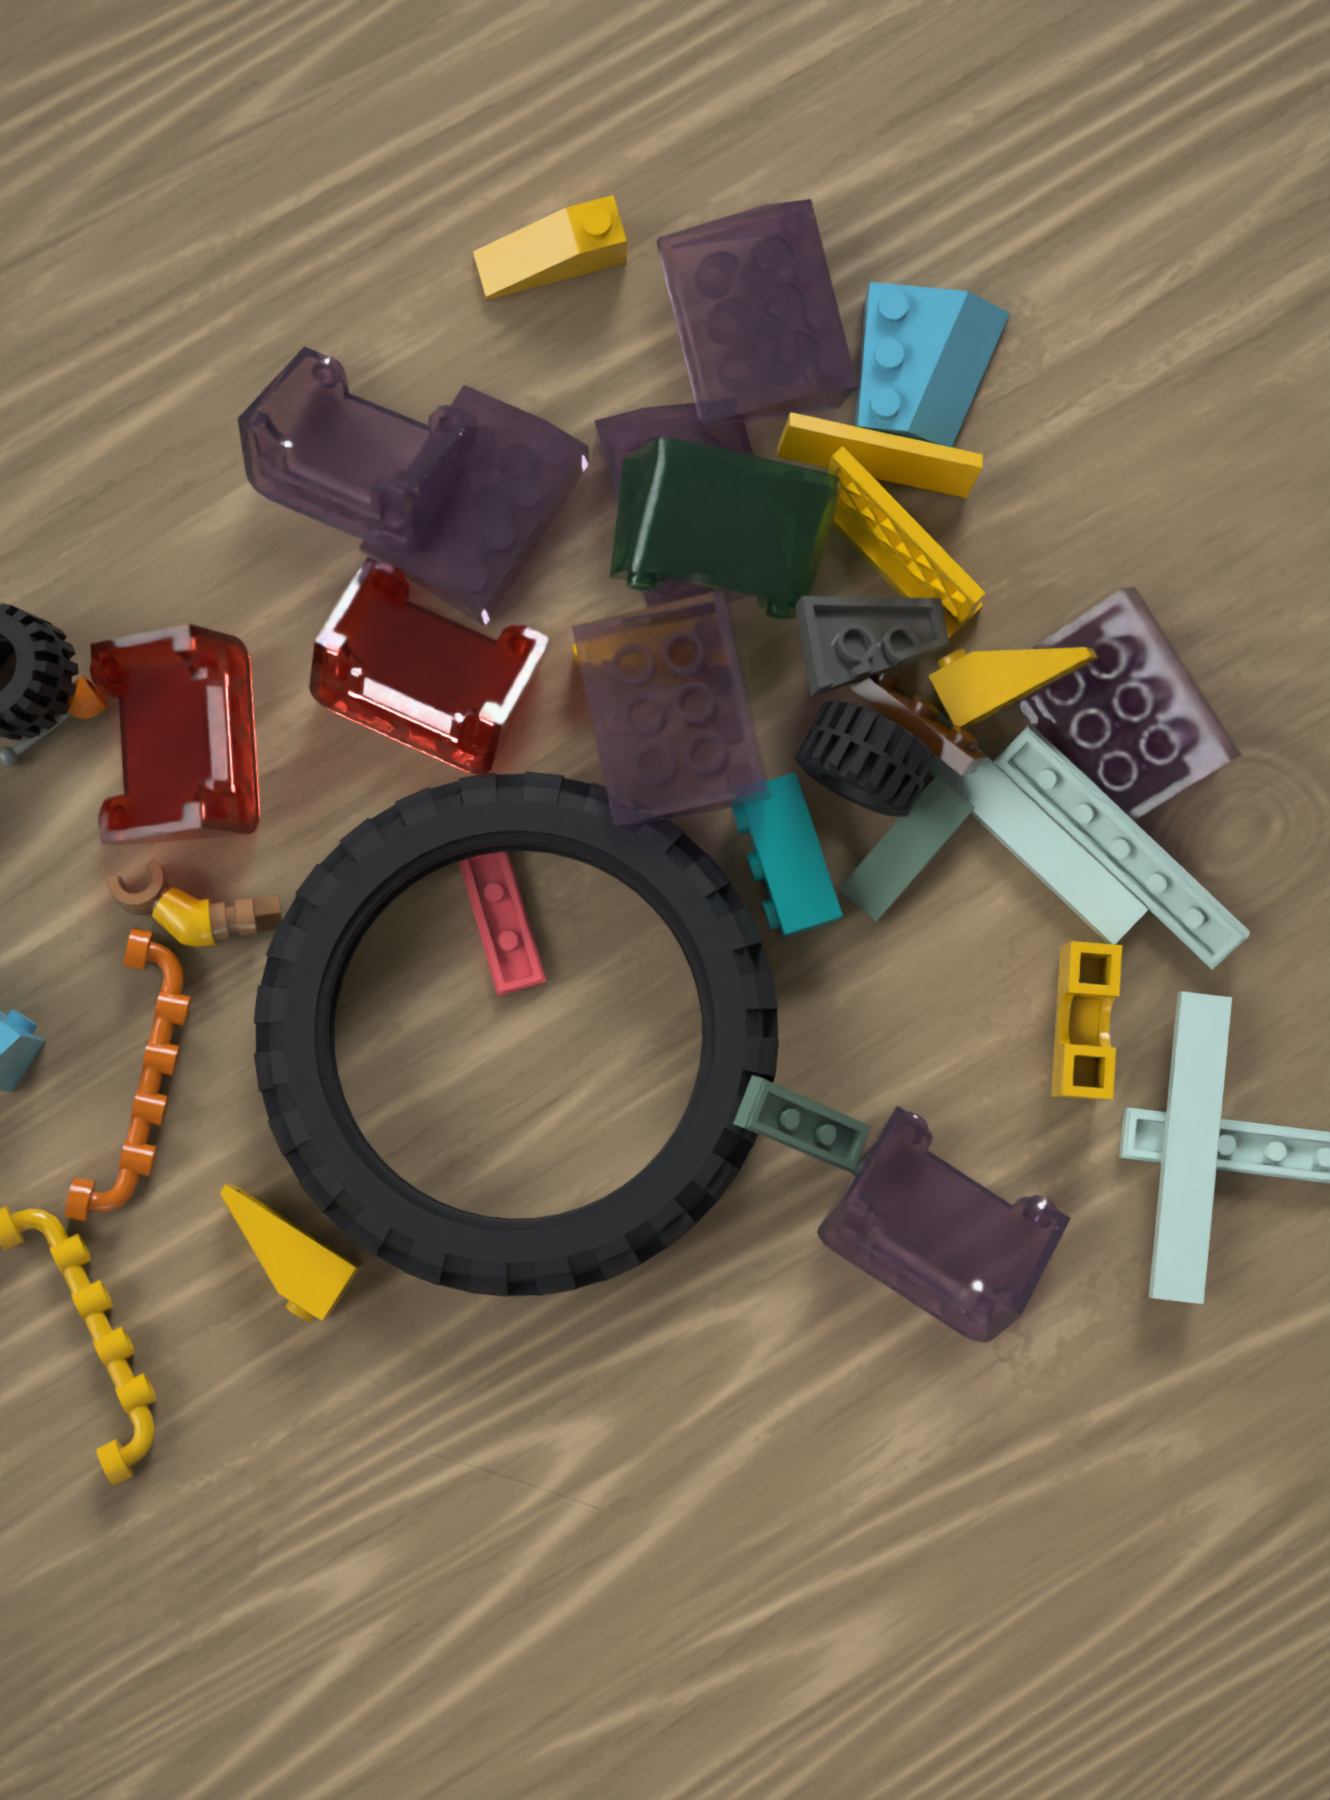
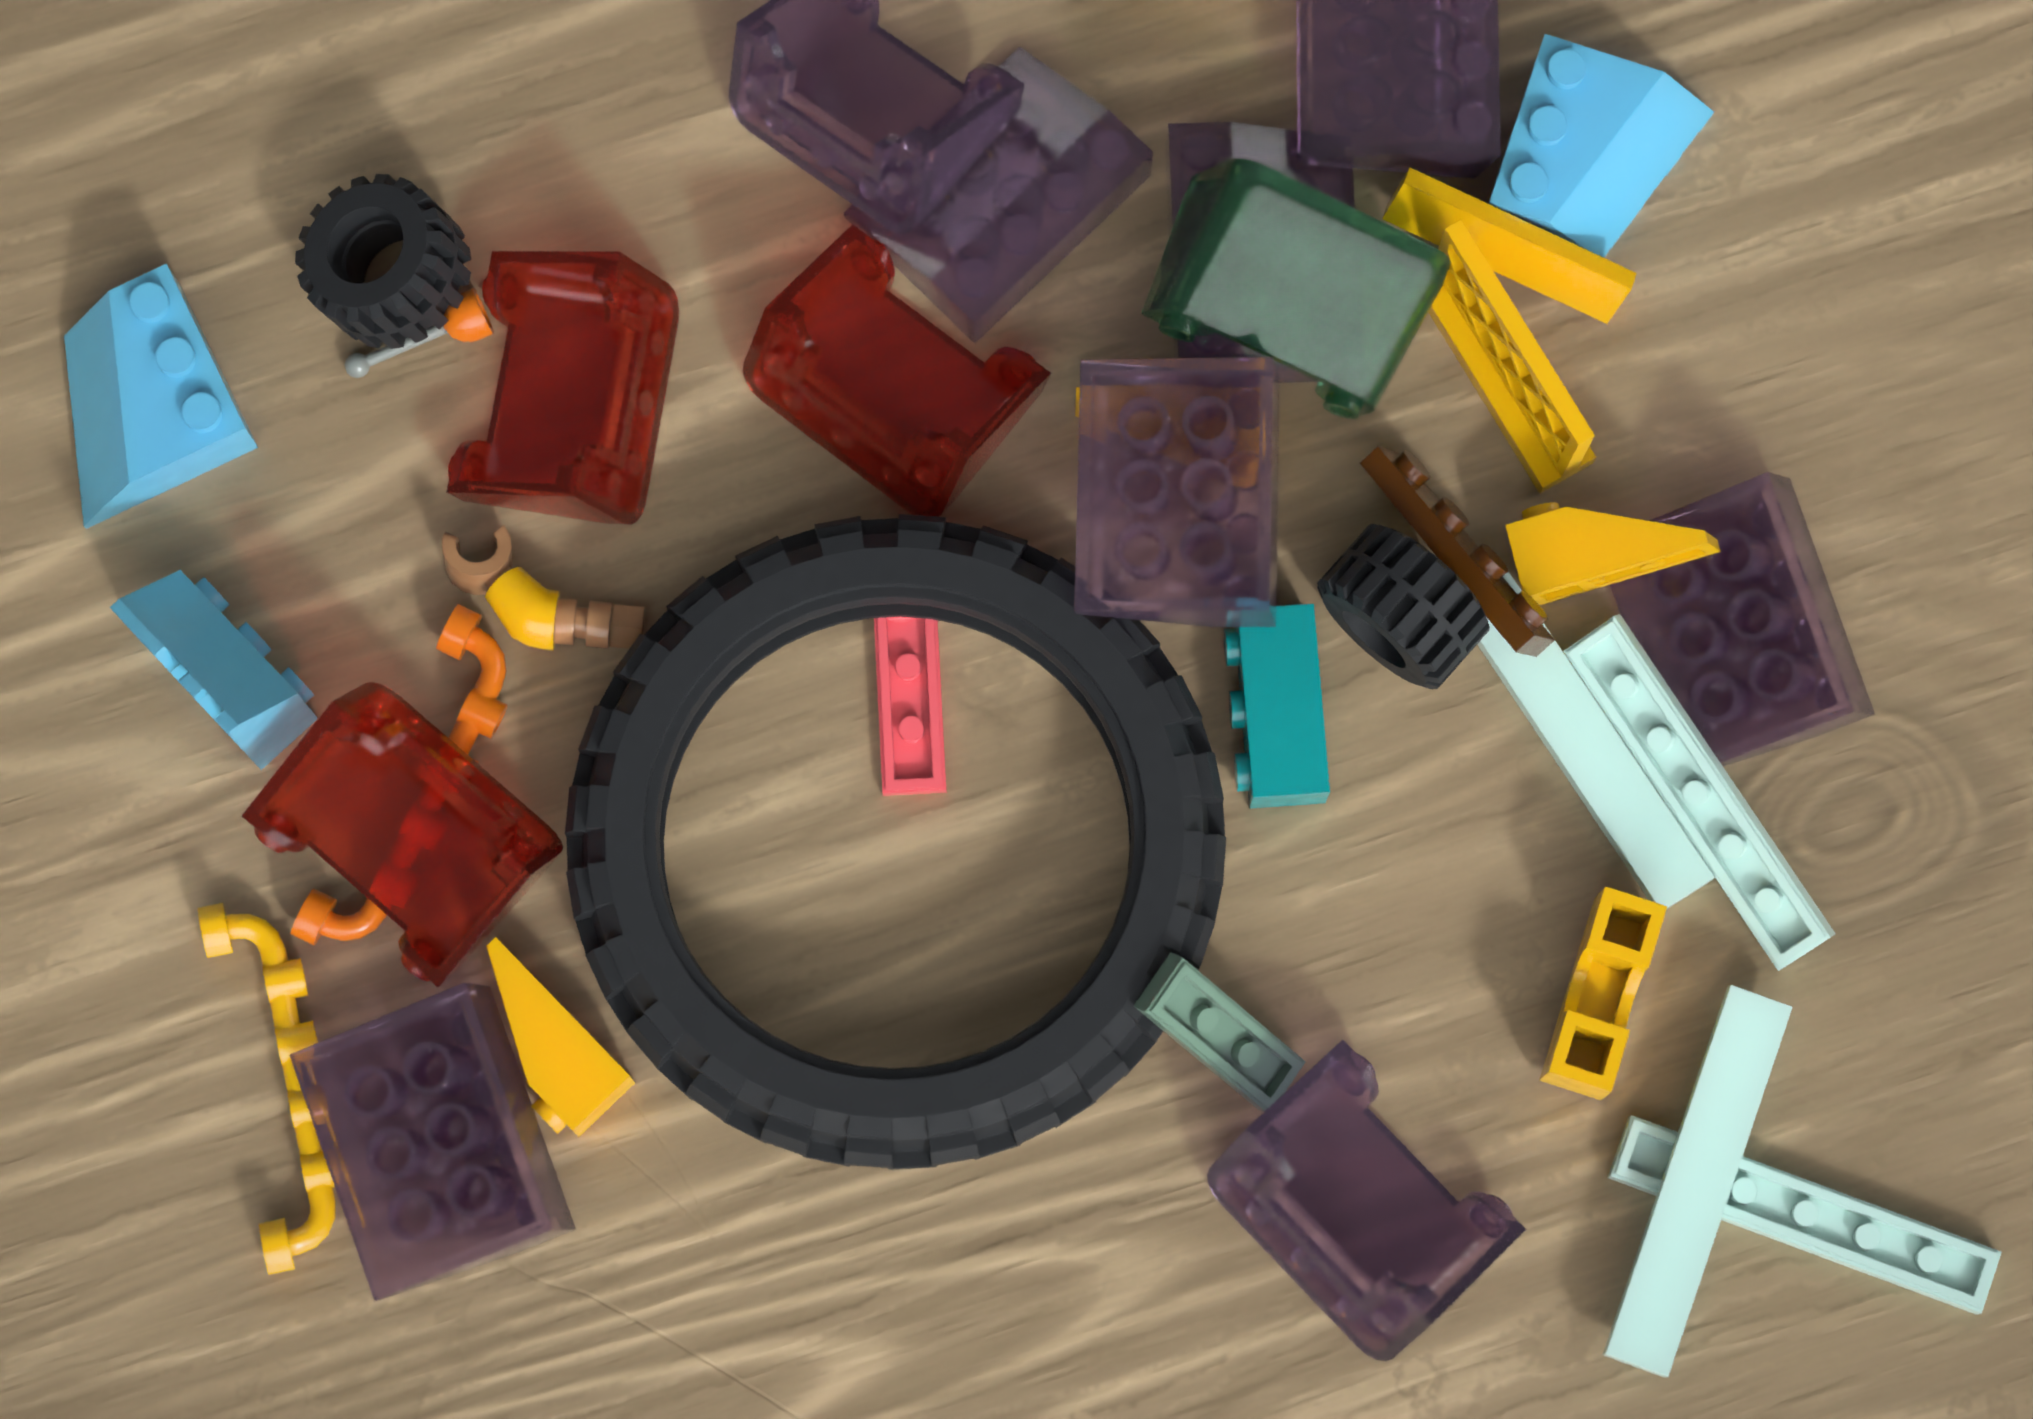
camera: 20 degrees right, 5 degrees down
(134, 1113) = (406, 825): none -> clear red windscreen
(215, 1353) = (432, 1140): none -> slope
(866, 636) = (1439, 458): dark grey wing -> none
(906, 848) = (1430, 731): sand green tile -> none

